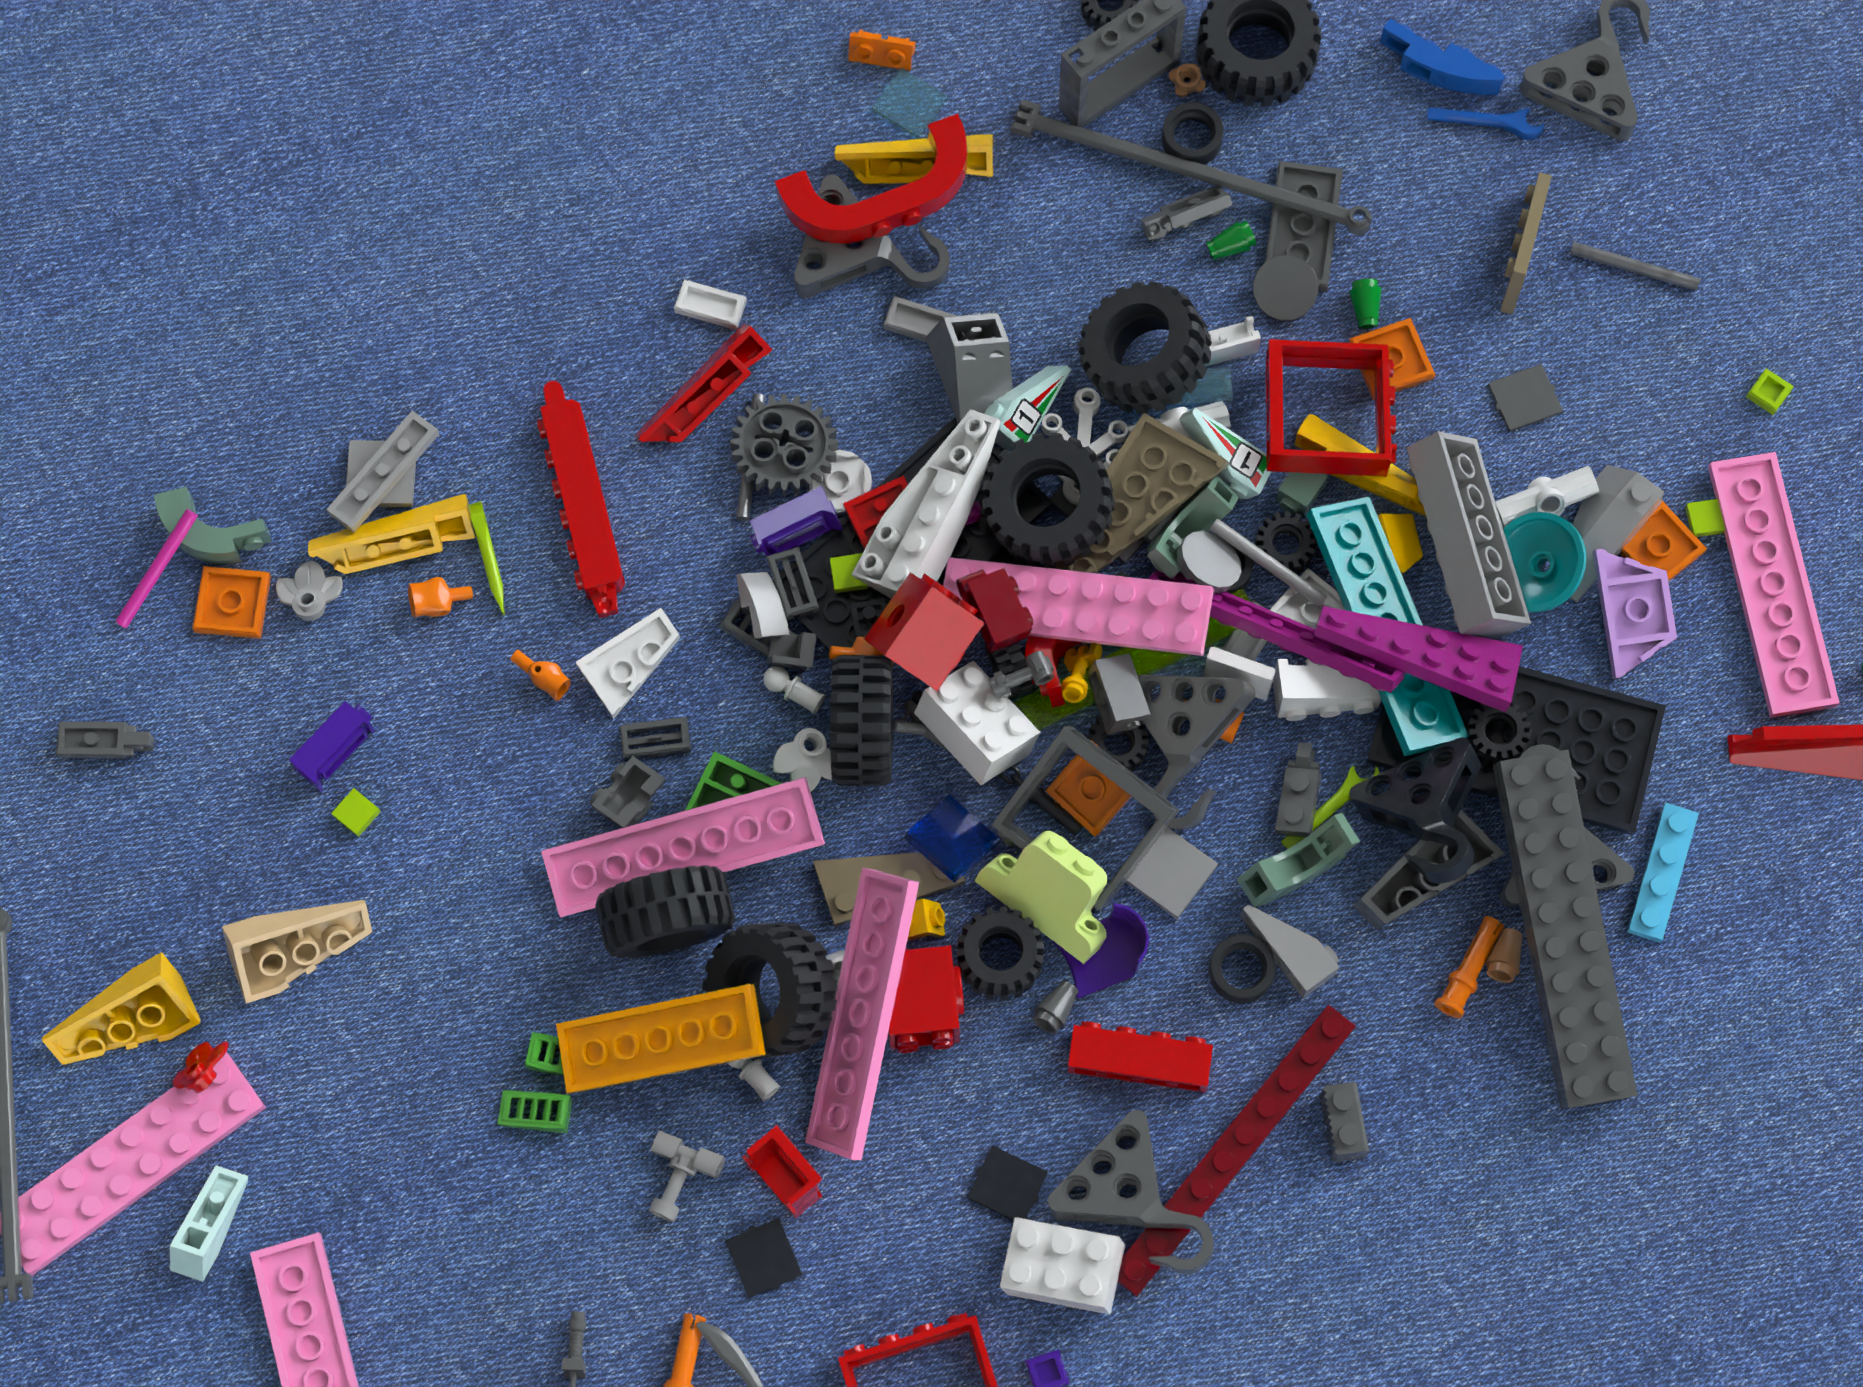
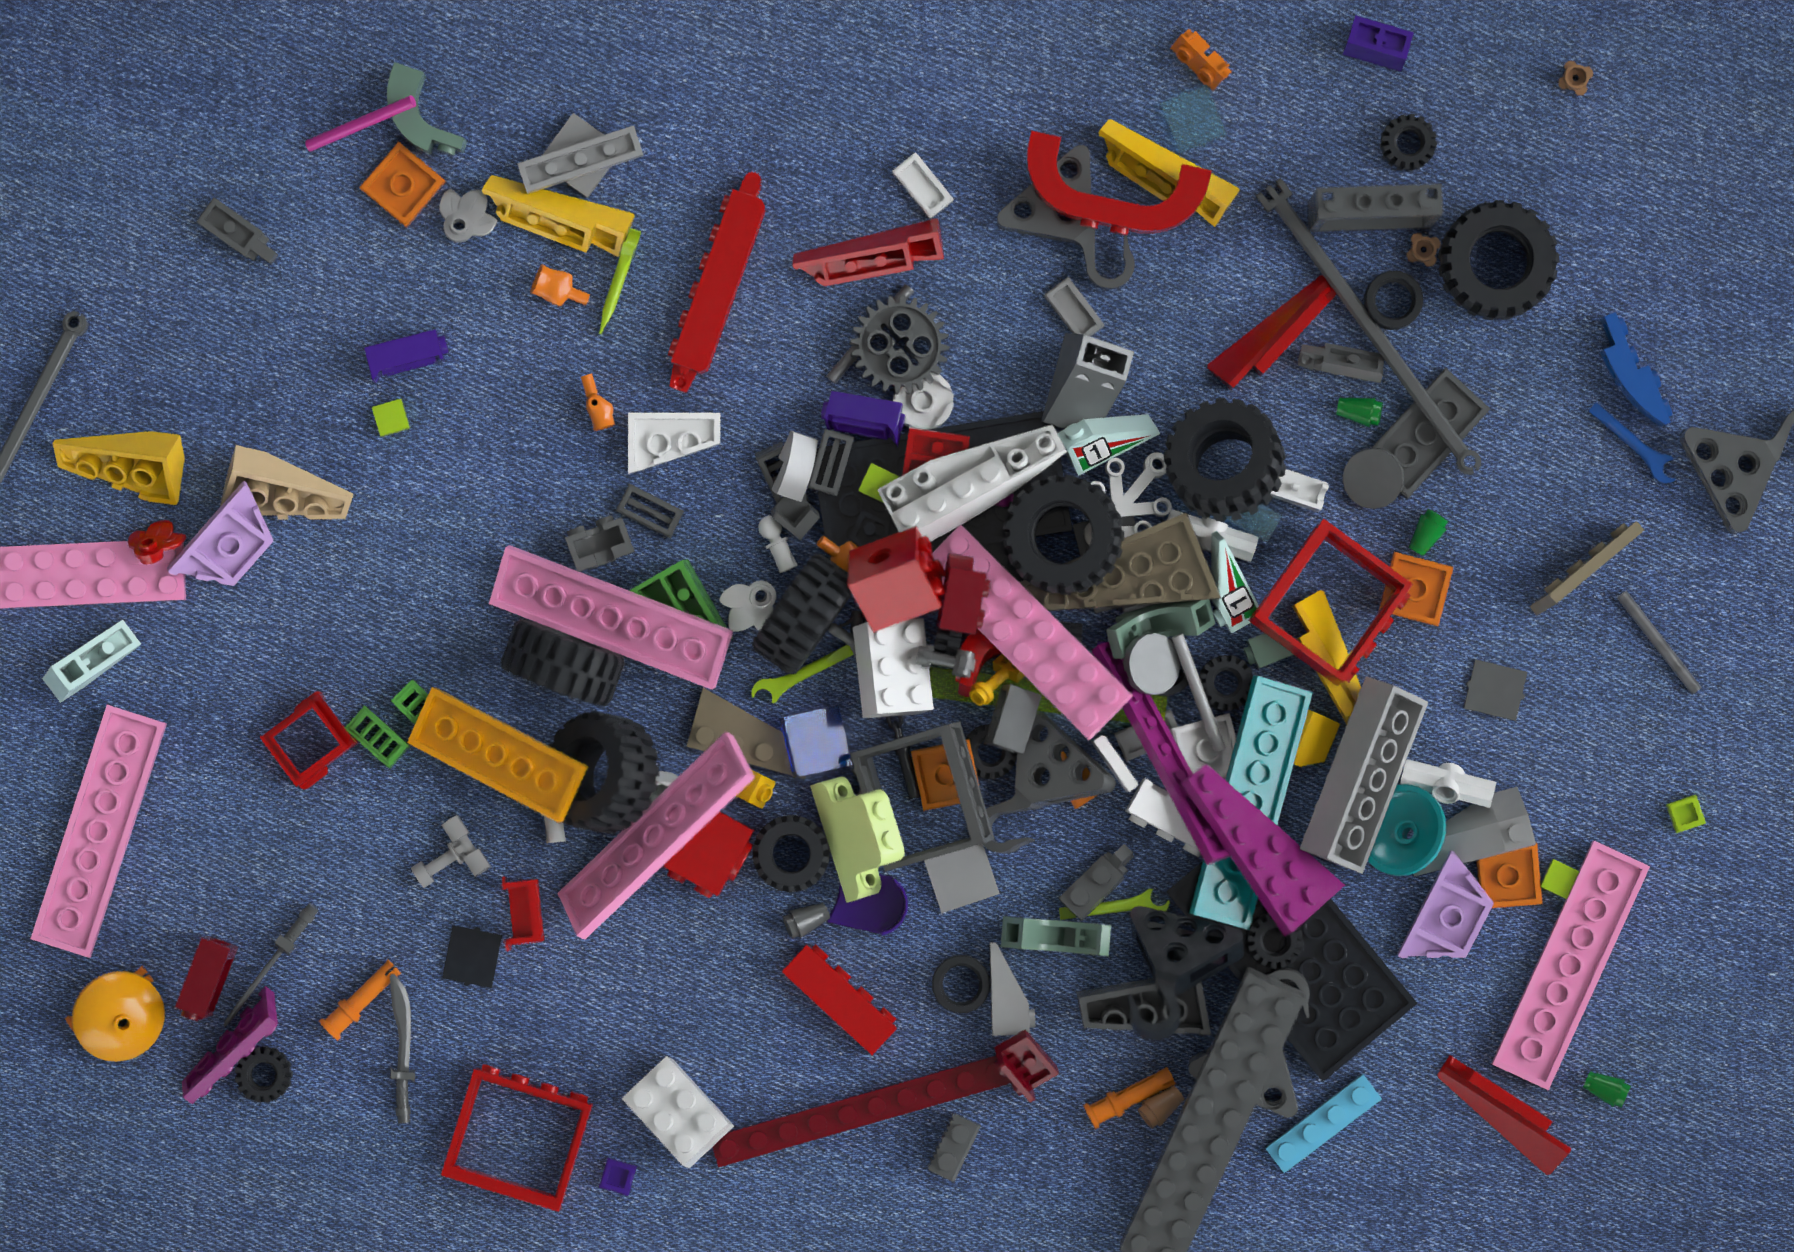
camera: 30 degrees right, 15 degrees up
(270, 1022) = (227, 541): none -> lavender wing
(496, 1180) = (319, 769): none -> red piece
(883, 813) = (780, 685): none -> lime piece
(1007, 1184) = (682, 1023): black piece -> none
(1109, 233) = (1273, 335): none -> red wedge
(1144, 1209) = (767, 1111): dark grey piece -> none
(1354, 995) = (1024, 1064): none -> dark red bracket

